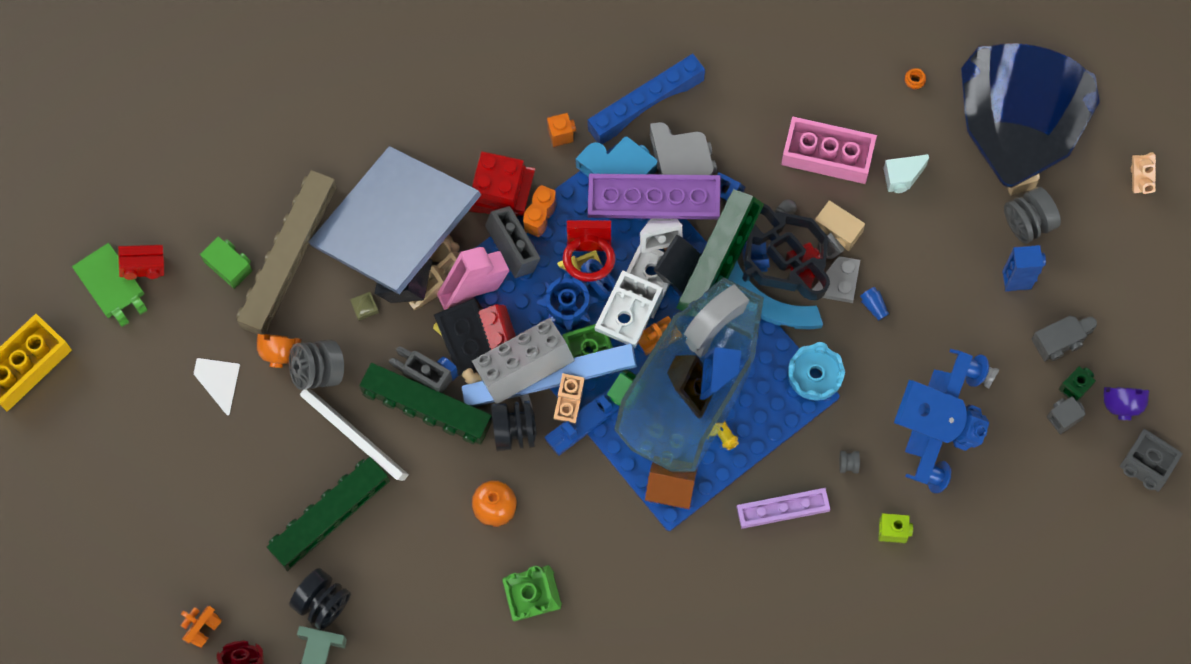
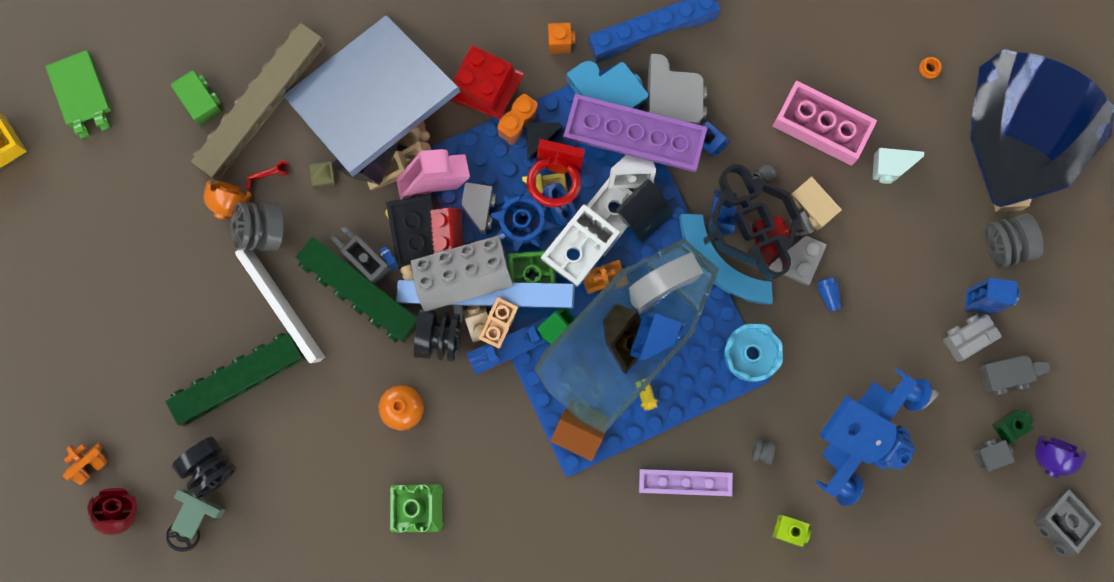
camera: 10 degrees right, 10 degrees up
(141, 261) = (111, 77): red brick -> none
(218, 379) = (162, 215): white sticker -> none
(311, 316) = (262, 174): none -> red piece
(512, 242) = (482, 145): dark grey brick -> none
(520, 298) = (477, 204): none -> light grey slope
(545, 403) = (475, 319): none -> tan bracket
(559, 221) = (538, 131): none -> black slope
(723, 245) = (690, 204): brick -> none
(1017, 312) = (972, 337): none -> light grey brick

